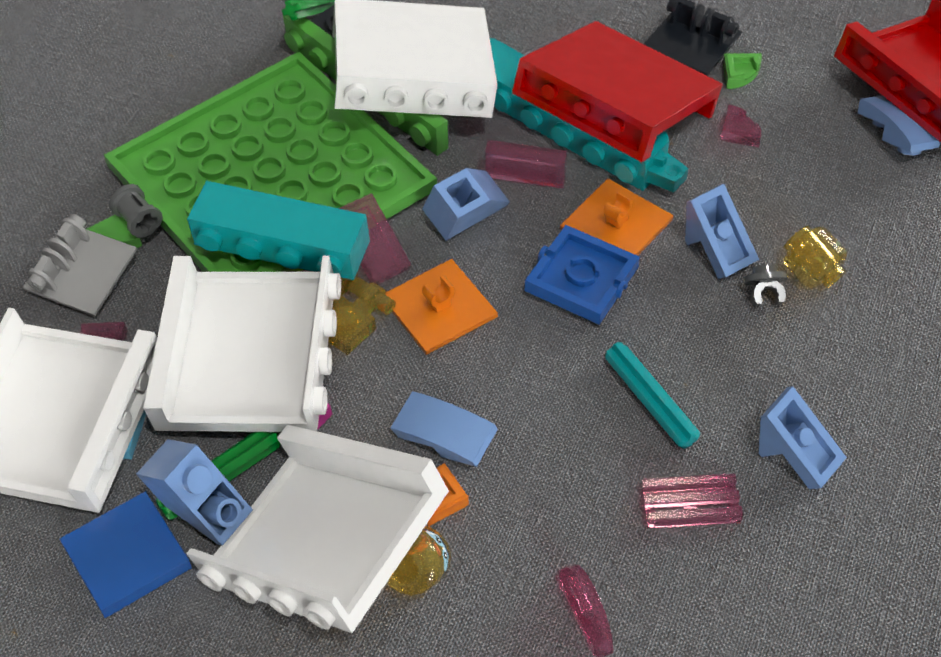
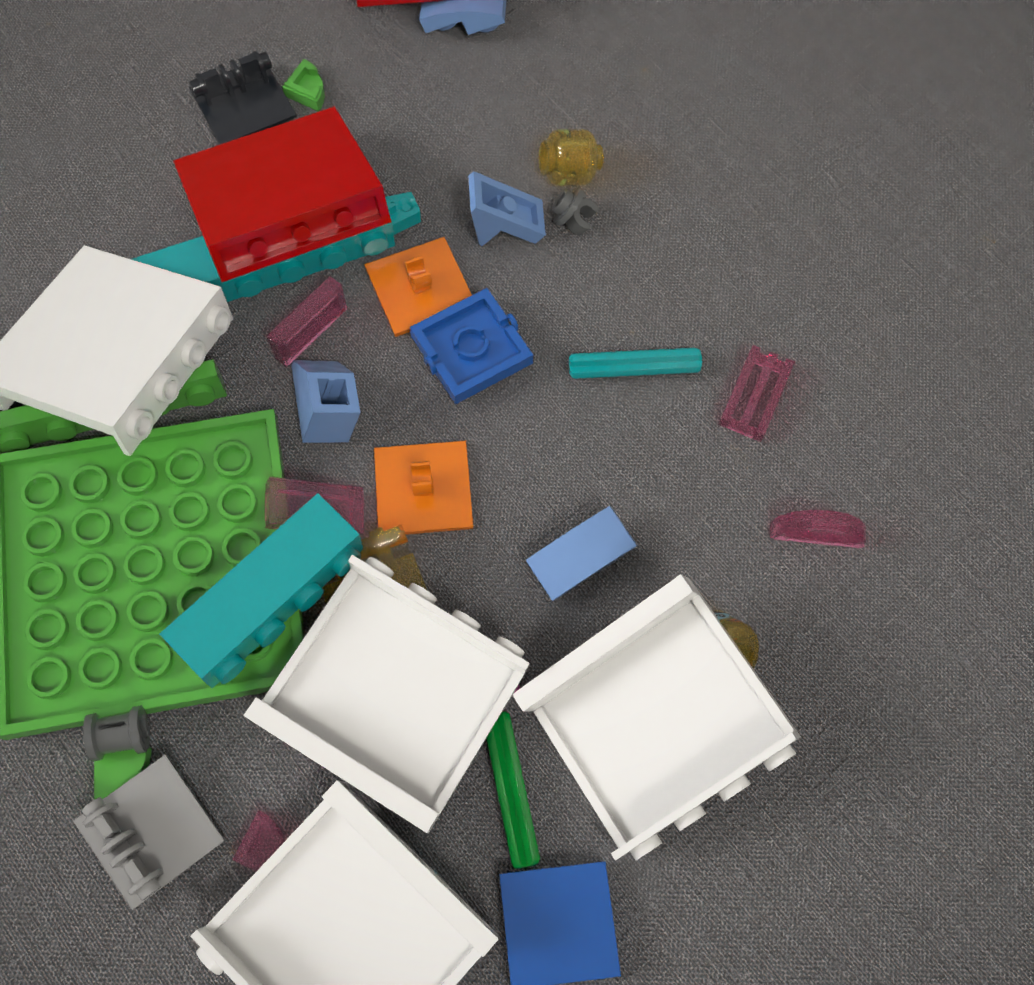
camera: 65 degrees left, 15 degrees up
(195, 490) = (543, 822): medium blue slope -> none
(454, 500) = (639, 584): orange tile -> none
(740, 128) = (377, 128): clear pink tile -> none
(796, 433) = (751, 276): medium blue slope -> none

